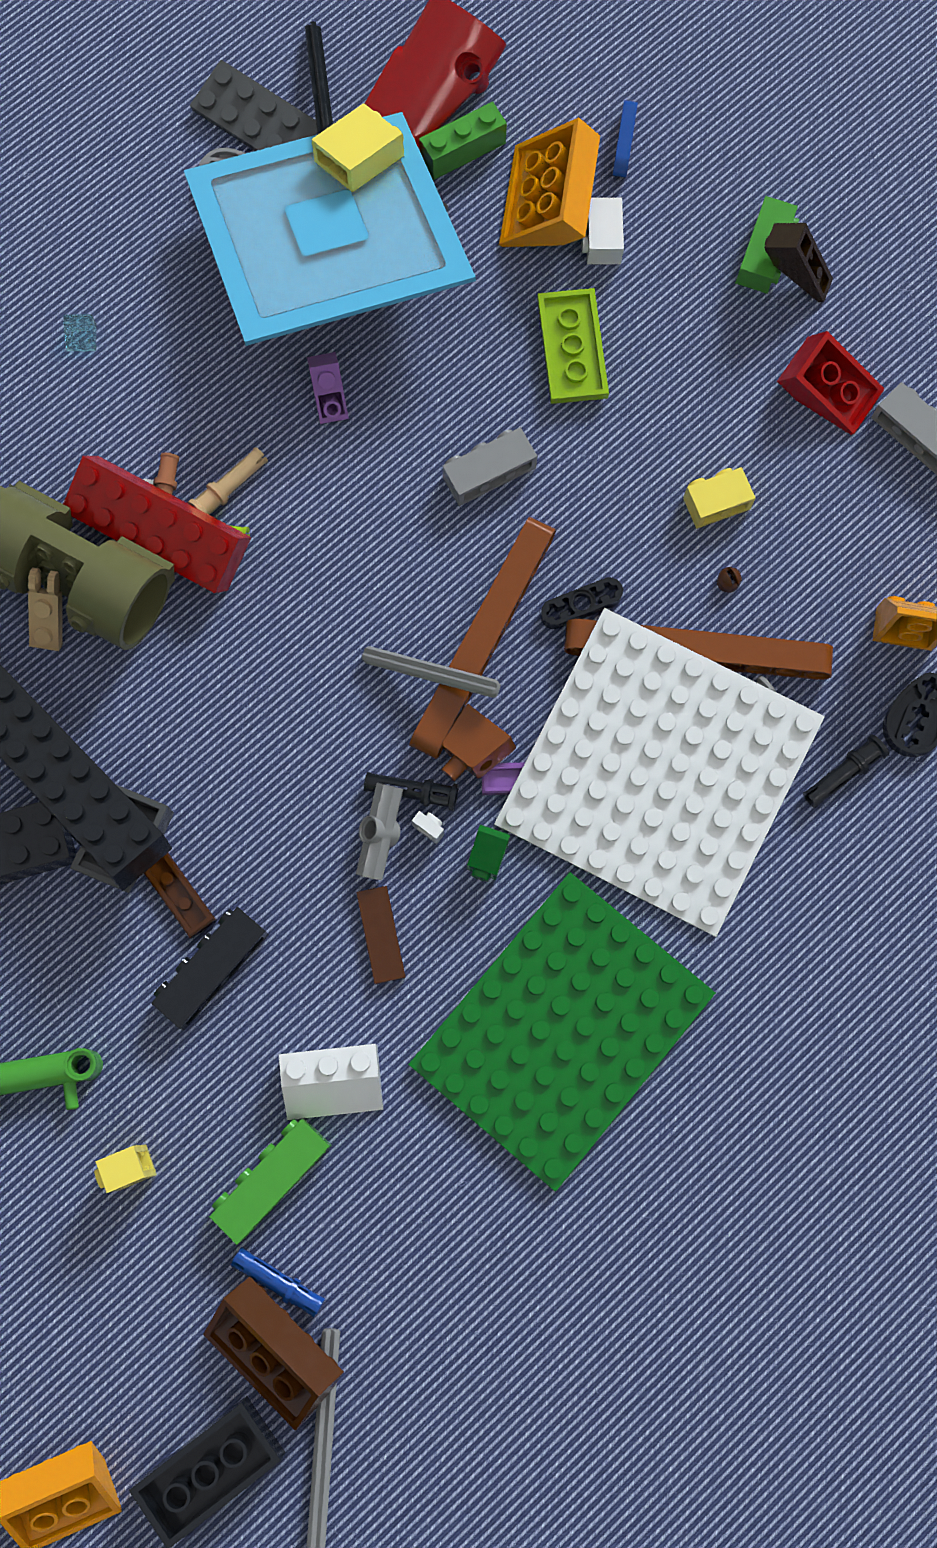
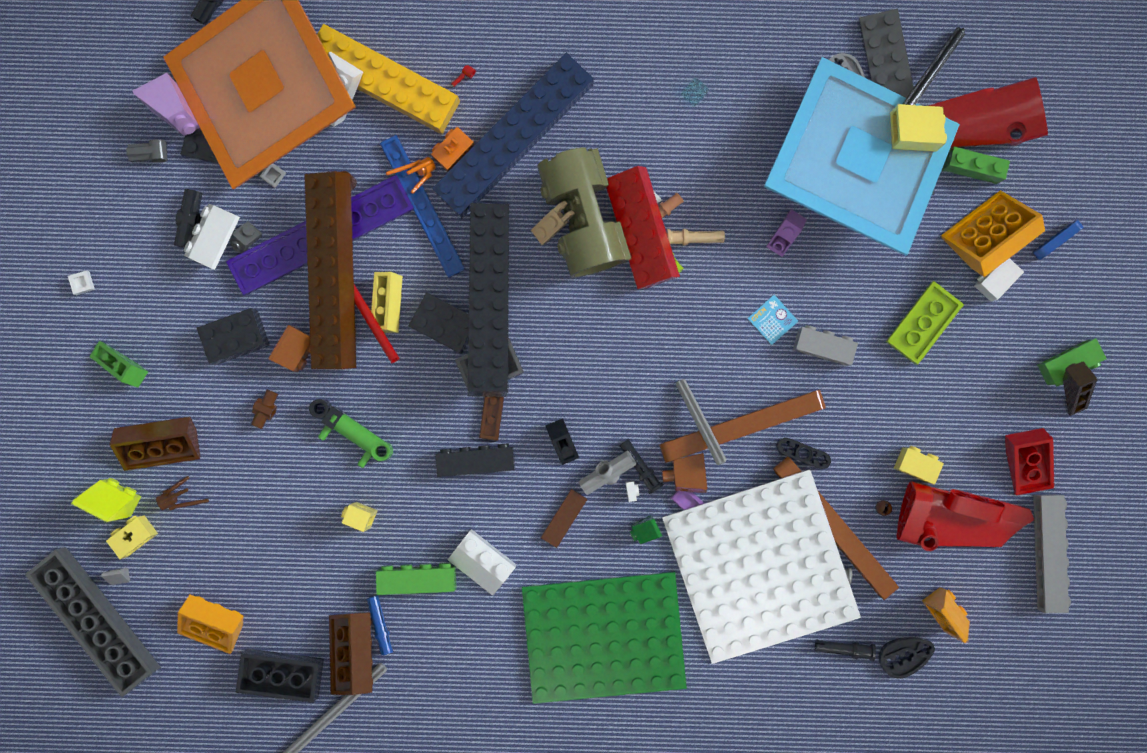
camera: 45 degrees right, 10 degrees up
(293, 847) = (562, 441): none -> black slope
(404, 494) = (773, 319): none -> medium azure sticker
(816, 515) = (957, 518): none -> red panel

